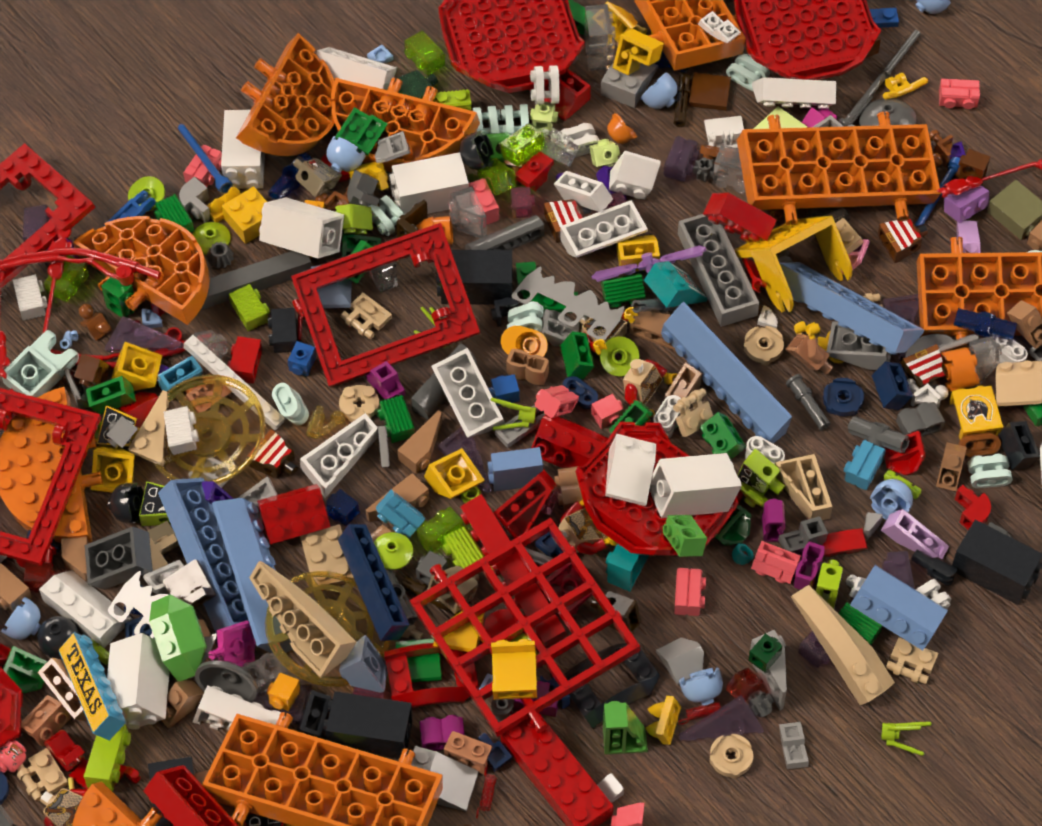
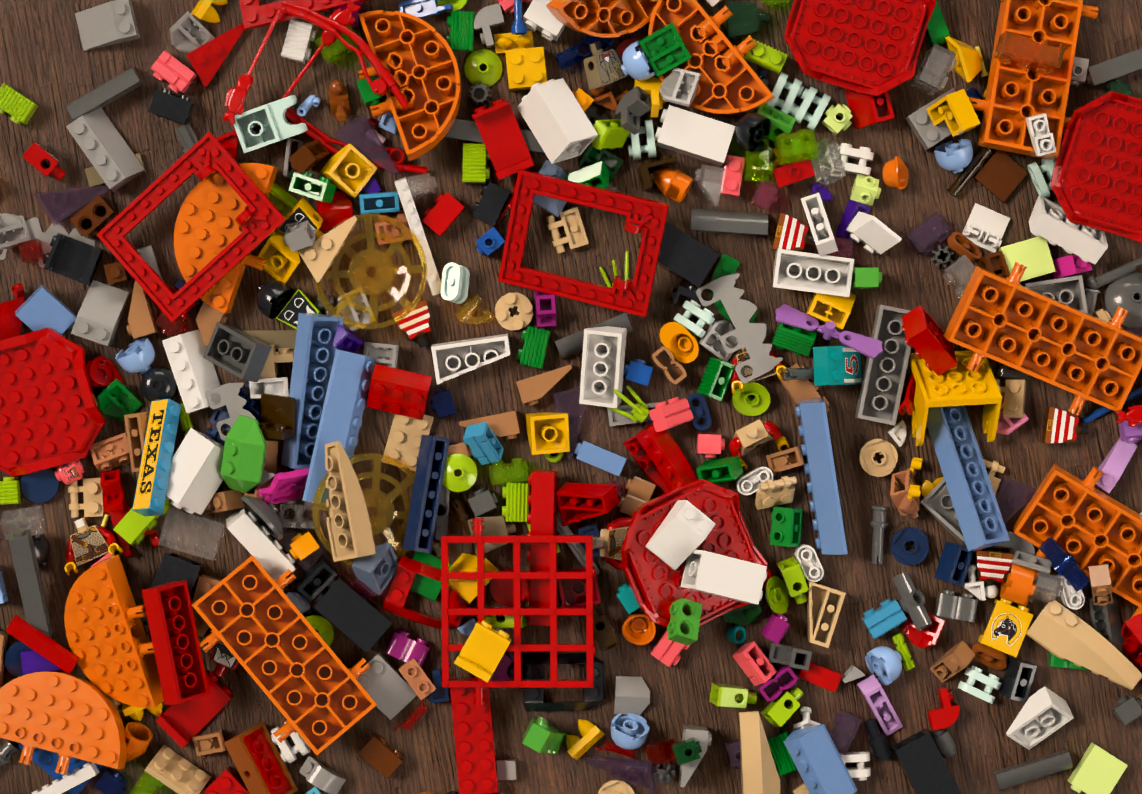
camera: 30 degrees right, 30 degrees up
(174, 739) = (192, 533): none -> clear piece
(180, 430) = (348, 264): white brick -> none
(259, 267) = (503, 138): none -> red panel
(383, 446) = (507, 370): light grey tile -> none
(538, 93) = (847, 92): white brick -> none
(649, 591) = (638, 629): none -> orange helmet
(652, 211) = (866, 278): none -> bright green brick
(772, 601) = (724, 696): none -> lime torso

